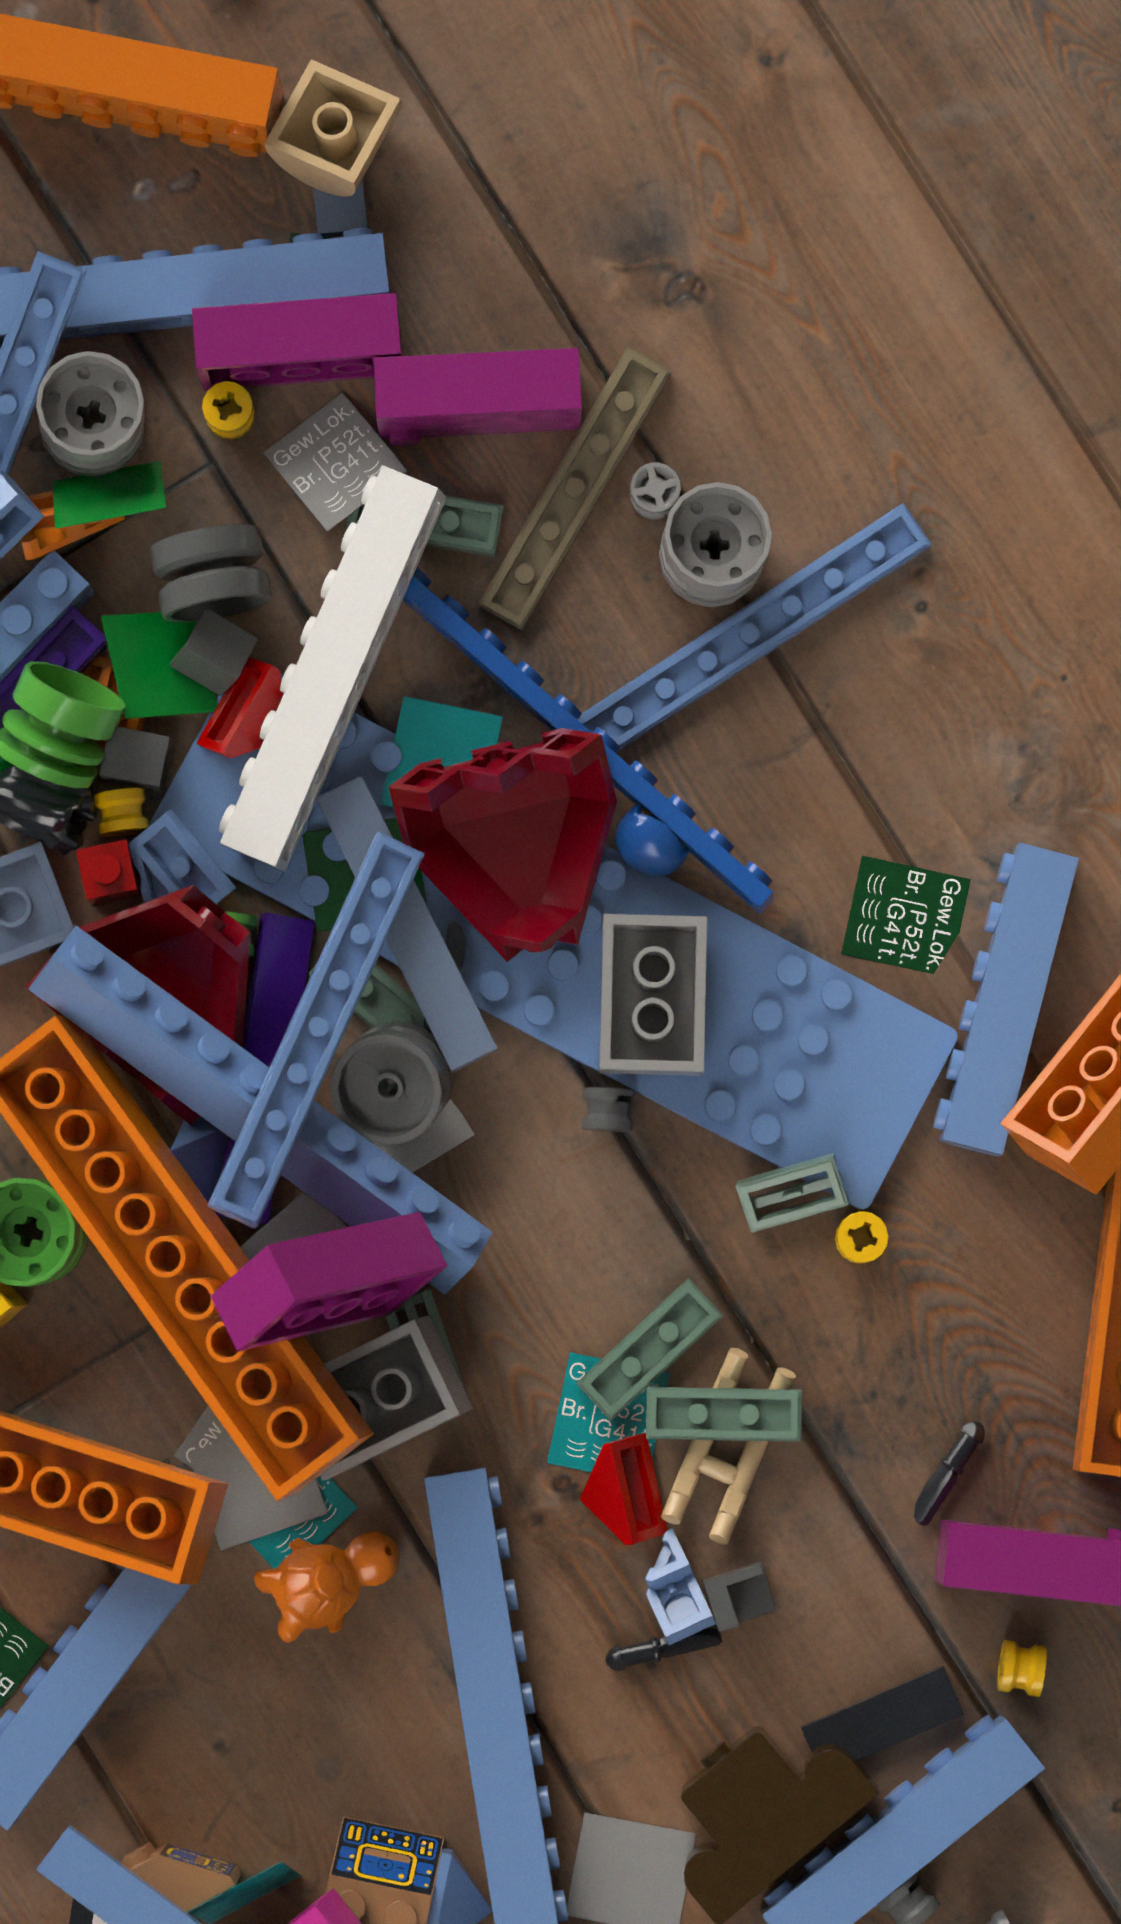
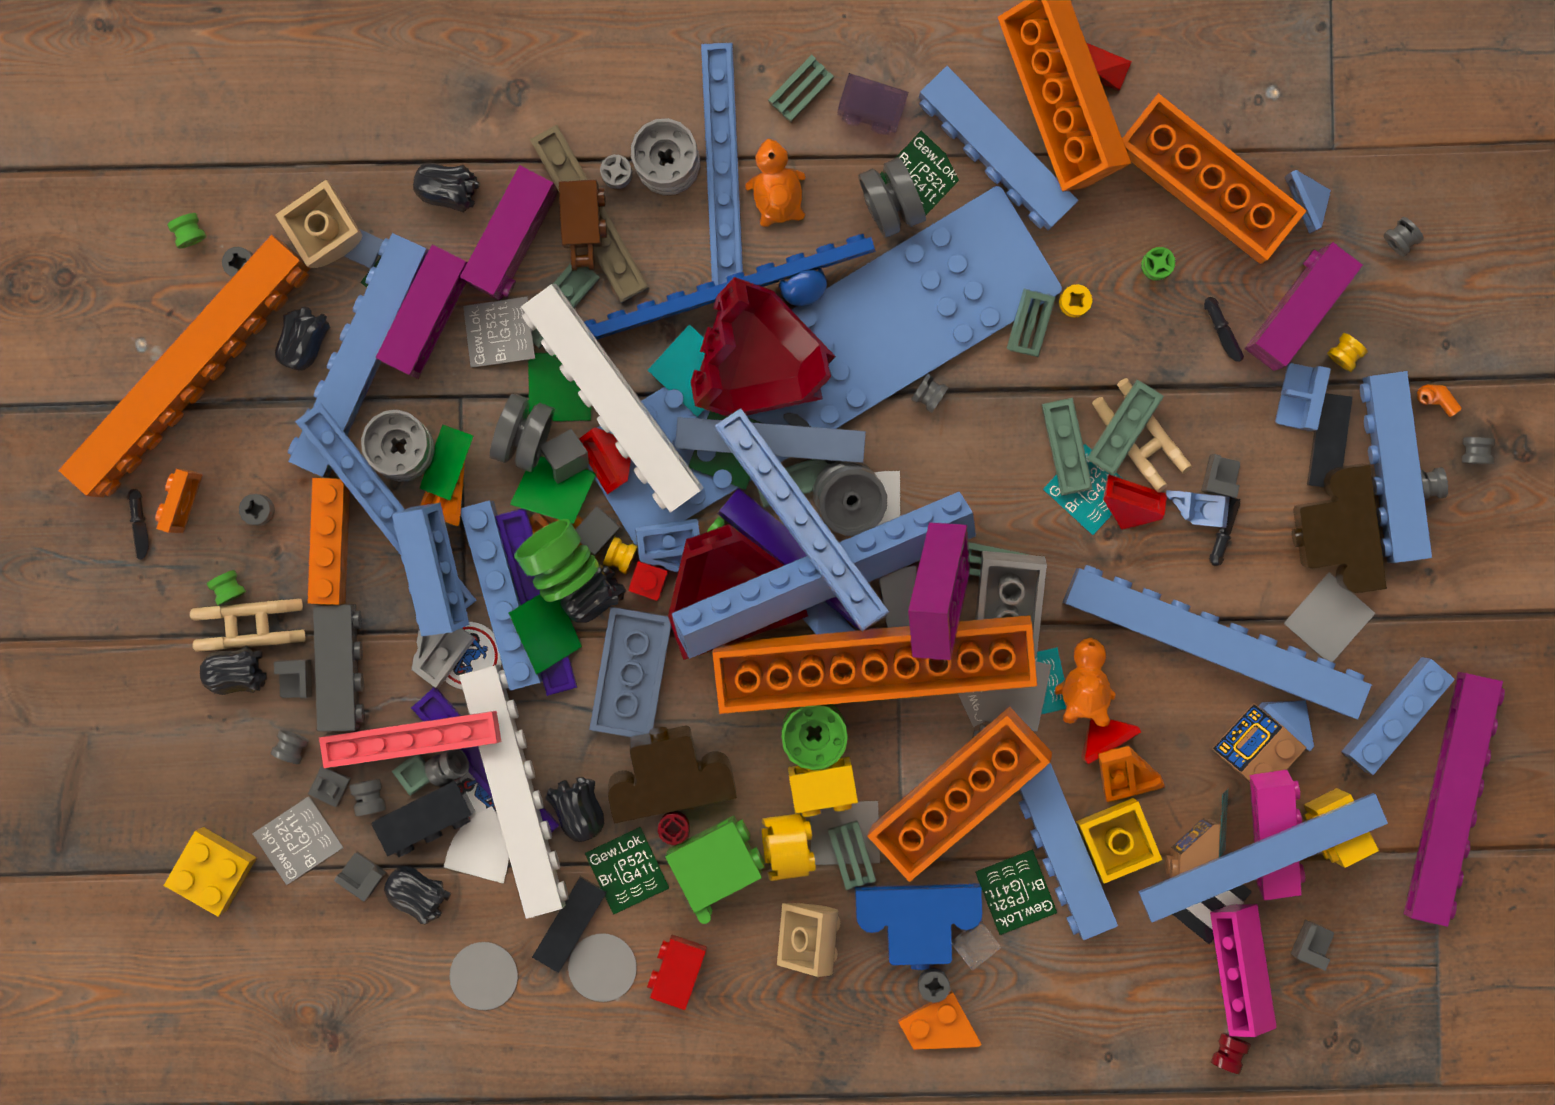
camera: 55 degrees left, 5 degrees up
(130, 1758) = (1119, 840): none -> yellow brick
(162, 195) = (301, 338): none -> black piece
(217, 35) = (230, 257): none -> dark grey wheel
(227, 420) = (441, 376): yellow wheel -> none
(233, 1714) = (1126, 774): none -> orange wing
(268, 1654) = (1105, 738): none -> red slope
(296, 585) = (553, 389): none -> green sticker
(492, 269) = (445, 186): none -> black piece
(557, 481) = (581, 219): none -> reddish brown brick
(653, 994) = (886, 332): light grey brick -> none
(765, 724) = (776, 188): none -> orange animal
(846, 890) = (887, 199): none -> dark grey wheel
(920, 1642) = (1302, 396): none -> medium blue panel
(930, 658) = (818, 69): none -> sand green tile
(962, 788) = (872, 104): none -> clear purple brick
(993, 1323) = (1161, 259): none -> bright green wheel
(1040, 1838) = (1438, 396): none -> orange arm

